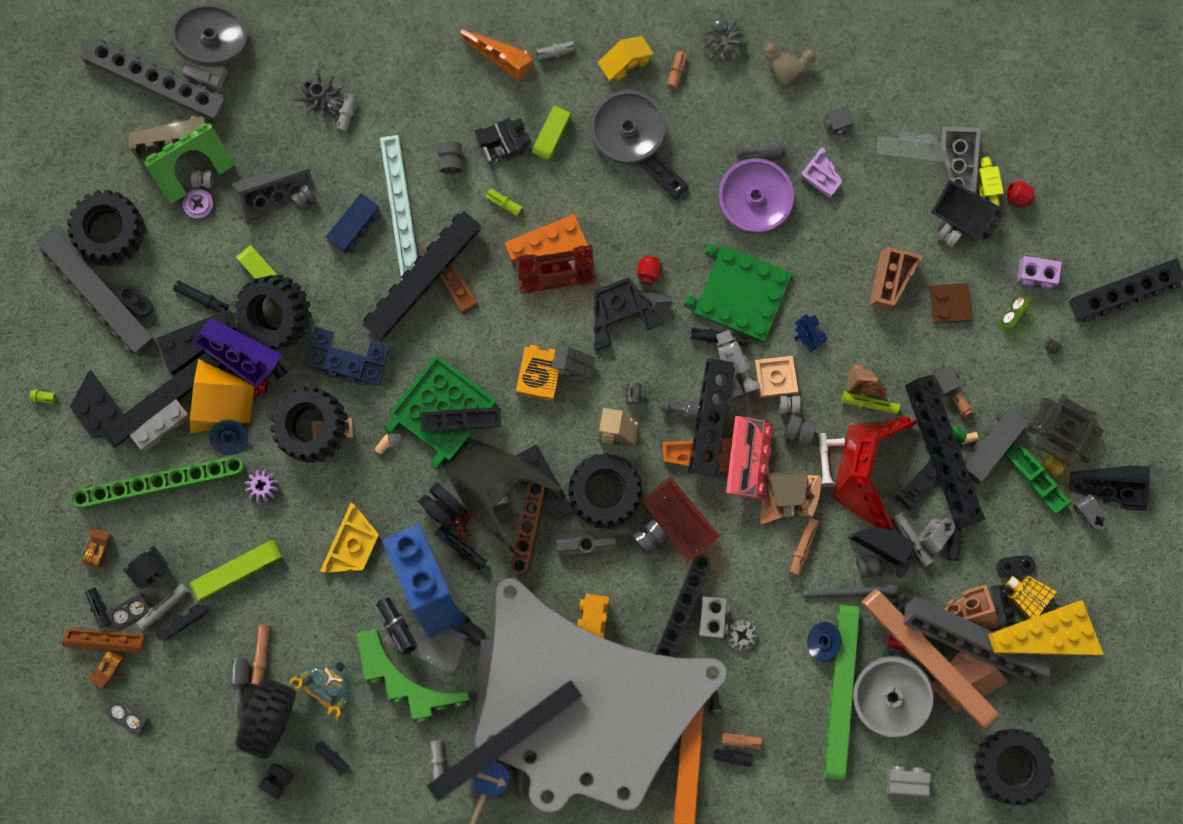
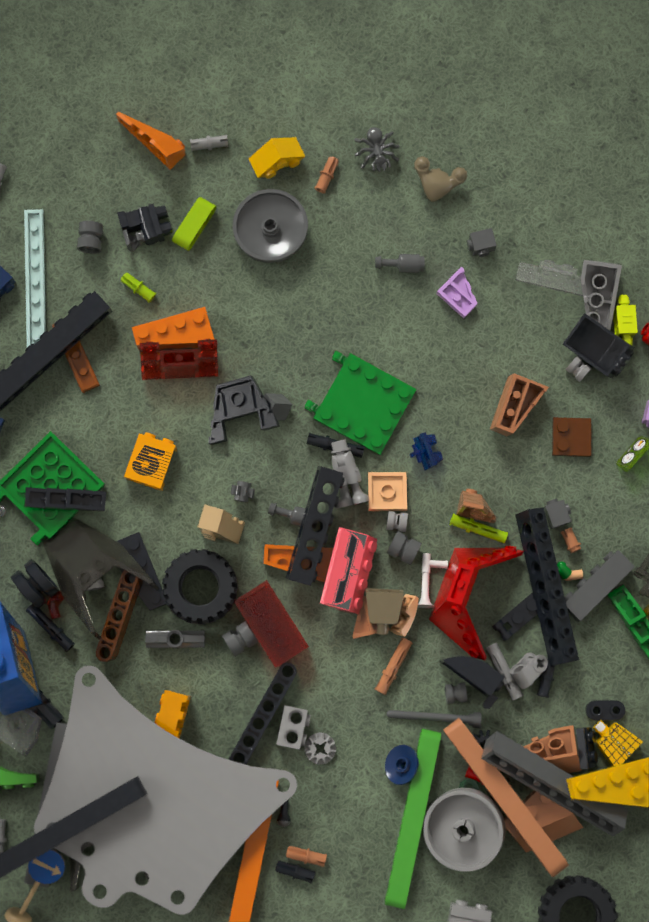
camera: 10 degrees right, 0 degrees up
(573, 363) = (184, 454): dark grey brick -> none
(649, 269) = (273, 370): red head -> none
(664, 175) = (301, 278): black plate -> none
(755, 196) = (389, 308): medium lavender dish -> none

